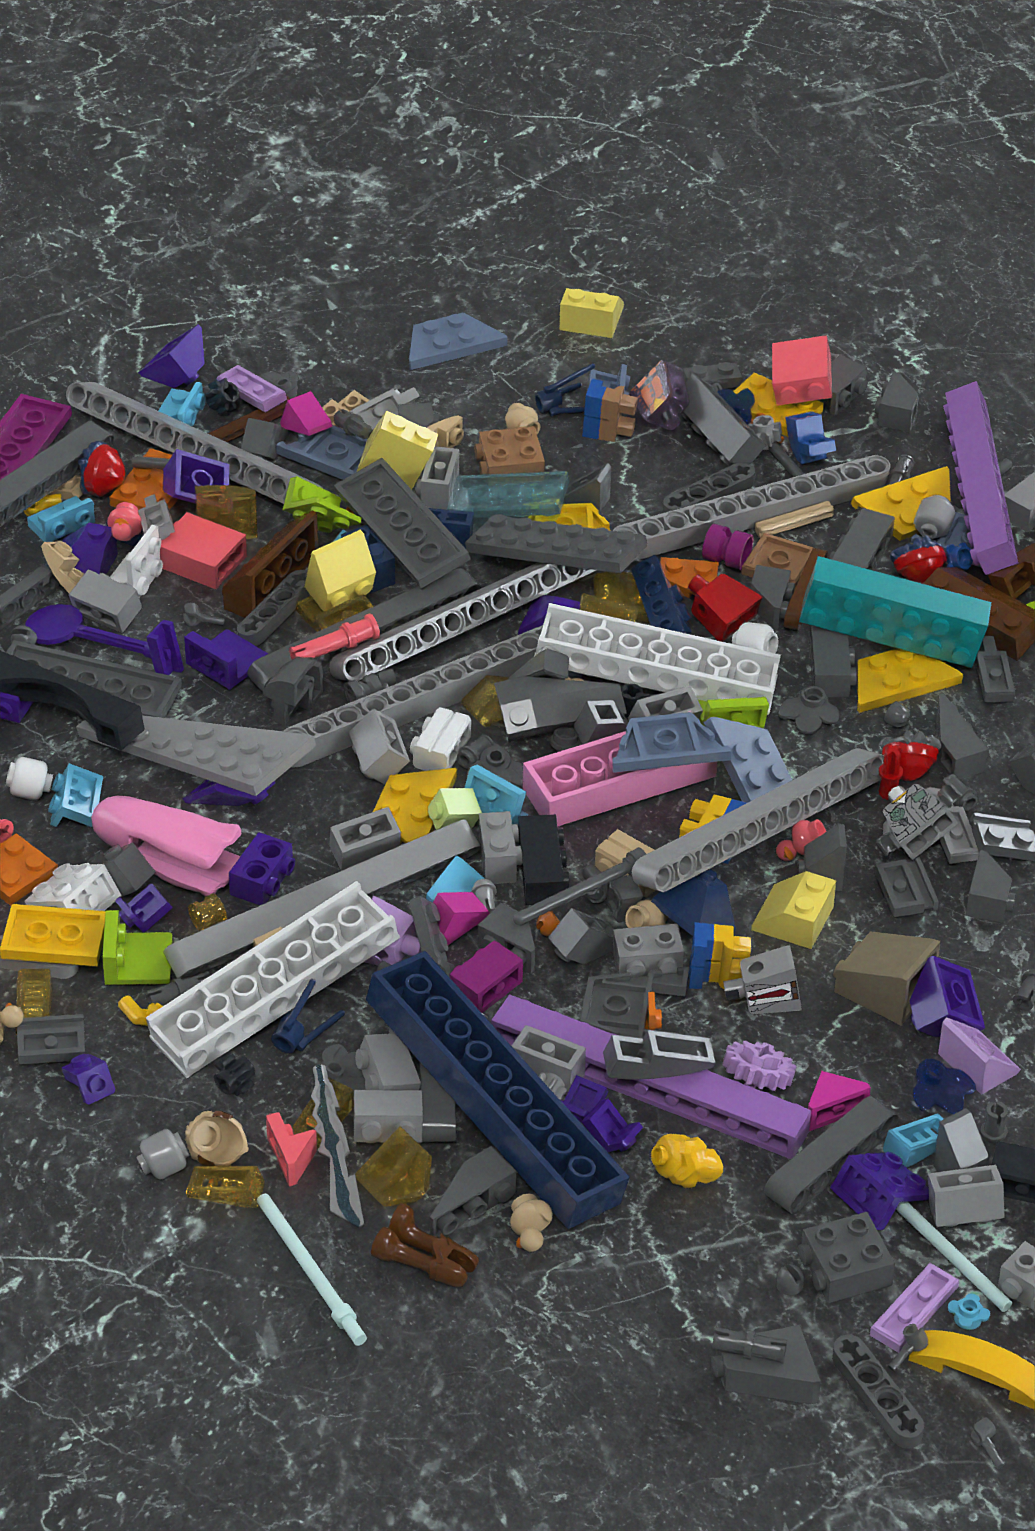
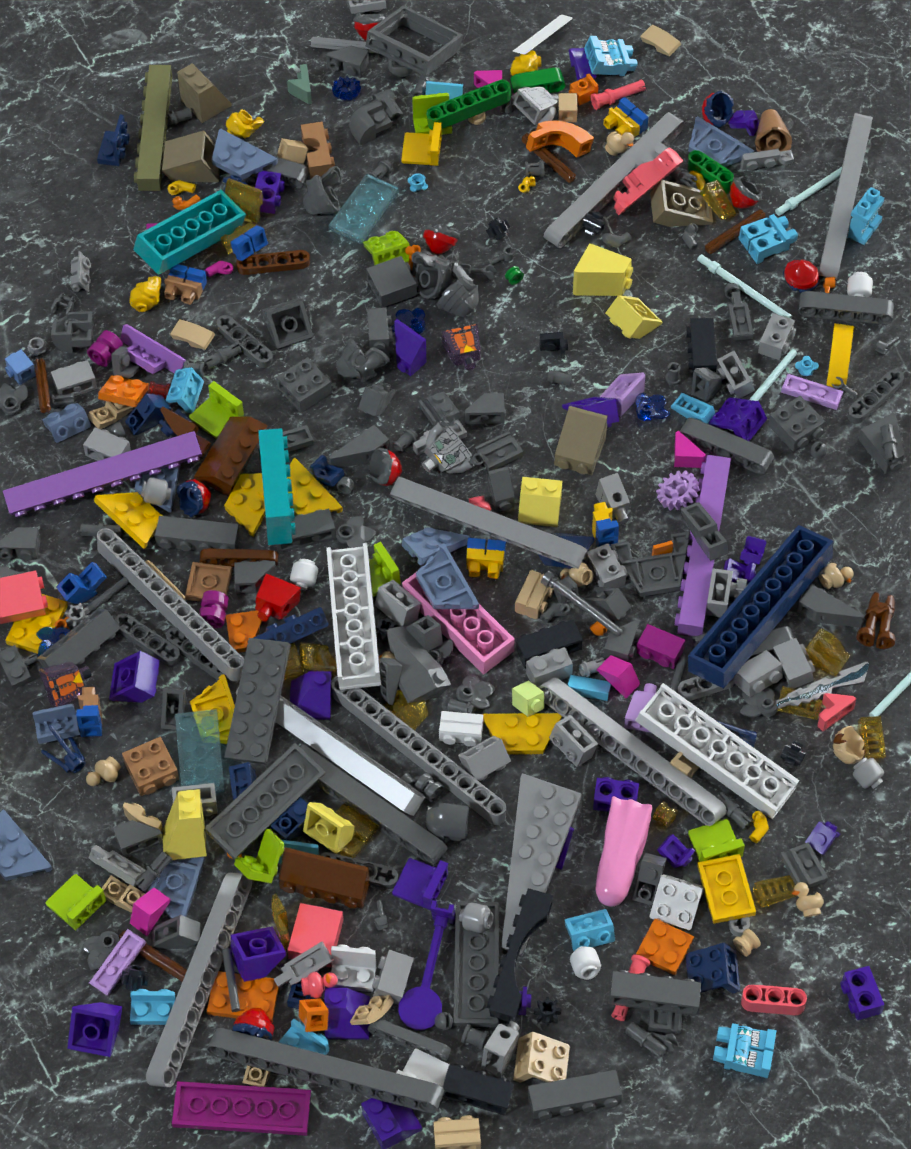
camera: 105 degrees left, 15 degrees up
(84, 508) = (313, 1014): none -> orange brick
(139, 677) = (476, 917): none -> light grey head
(347, 635) = (394, 800): coral pin -> none
(350, 372) = (76, 901): none -> lime bracket
(430, 938) = (661, 672): dark grey hinge -> none
(495, 793) = (509, 678): medium azure bracket -> none
(647, 465) = (134, 678): none -> dark purple slope
(686, 1160) = (762, 512): yellow head -> none
(890, 770) = (411, 470): red axle -> none
(924, 698) = (326, 473): none -> dark blue bracket
(959, 556) = (185, 474): blue plate -> none

